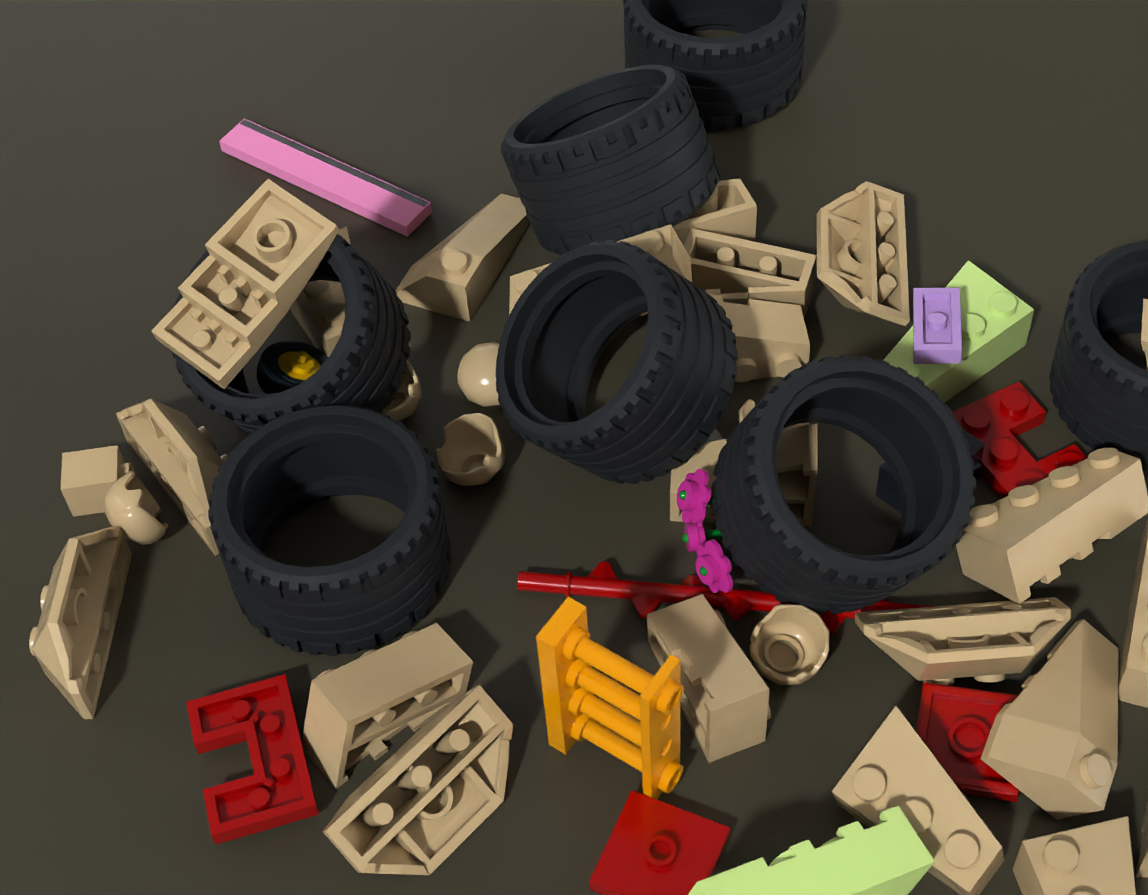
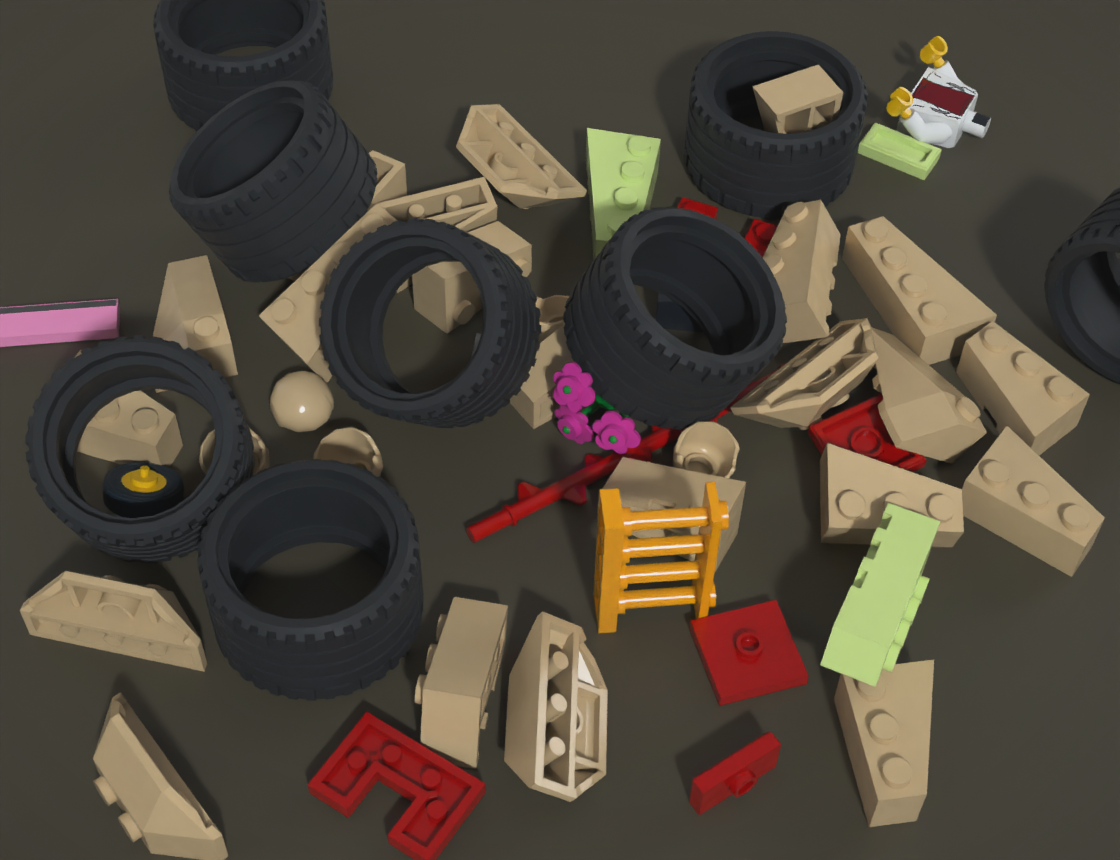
camera: 45 degrees left, 0 degrees up
(89, 475) = (47, 676): tan brick -> none
(134, 510) = (112, 674): tan hair -> none
(246, 282) = (100, 420): tan slope -> none
(937, 326) = (619, 180): lavender plate -> none

